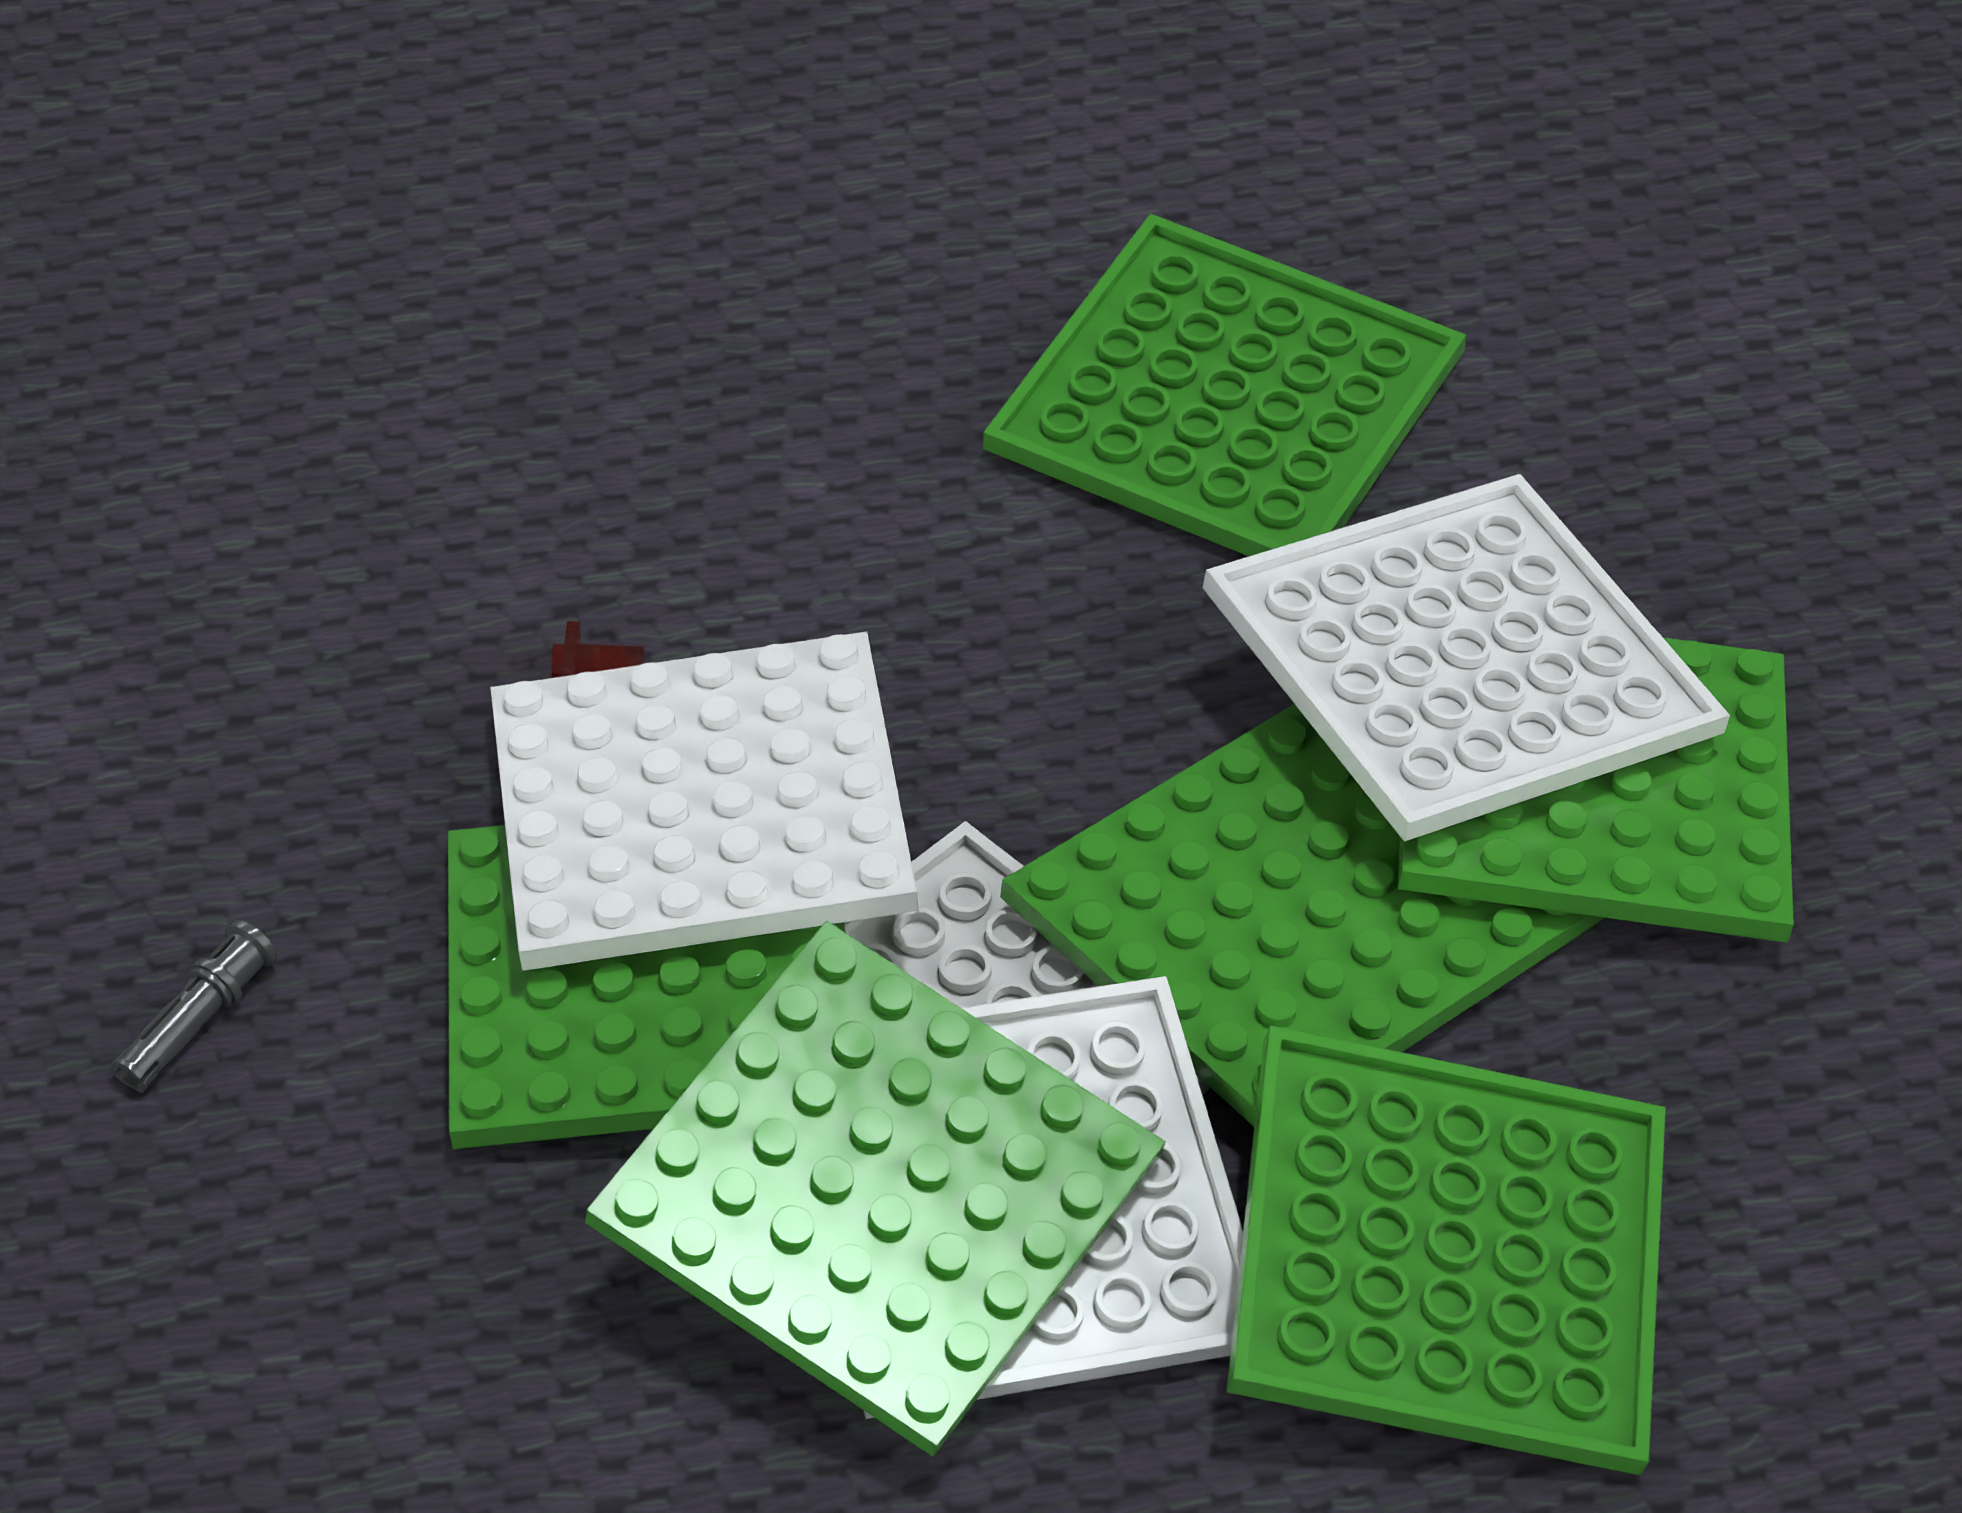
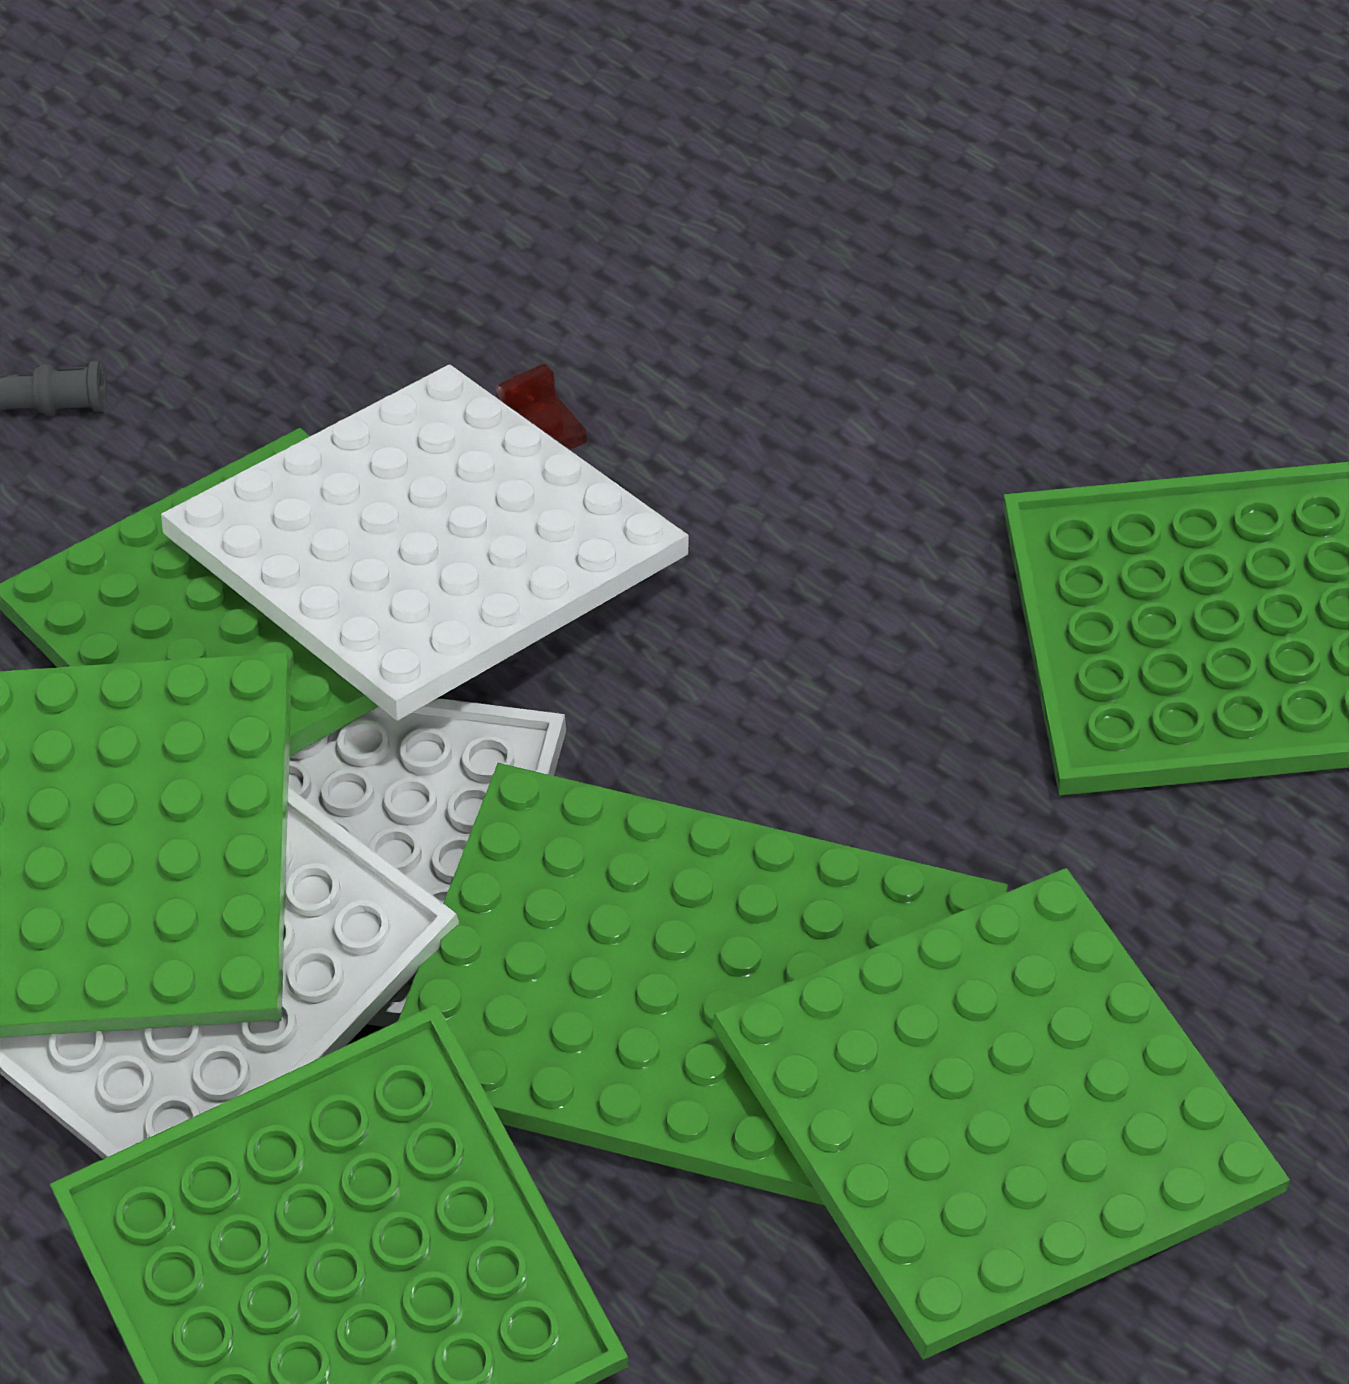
camera: 60 degrees right, 0 degrees up
(1464, 655) = (1005, 926): white plate -> none

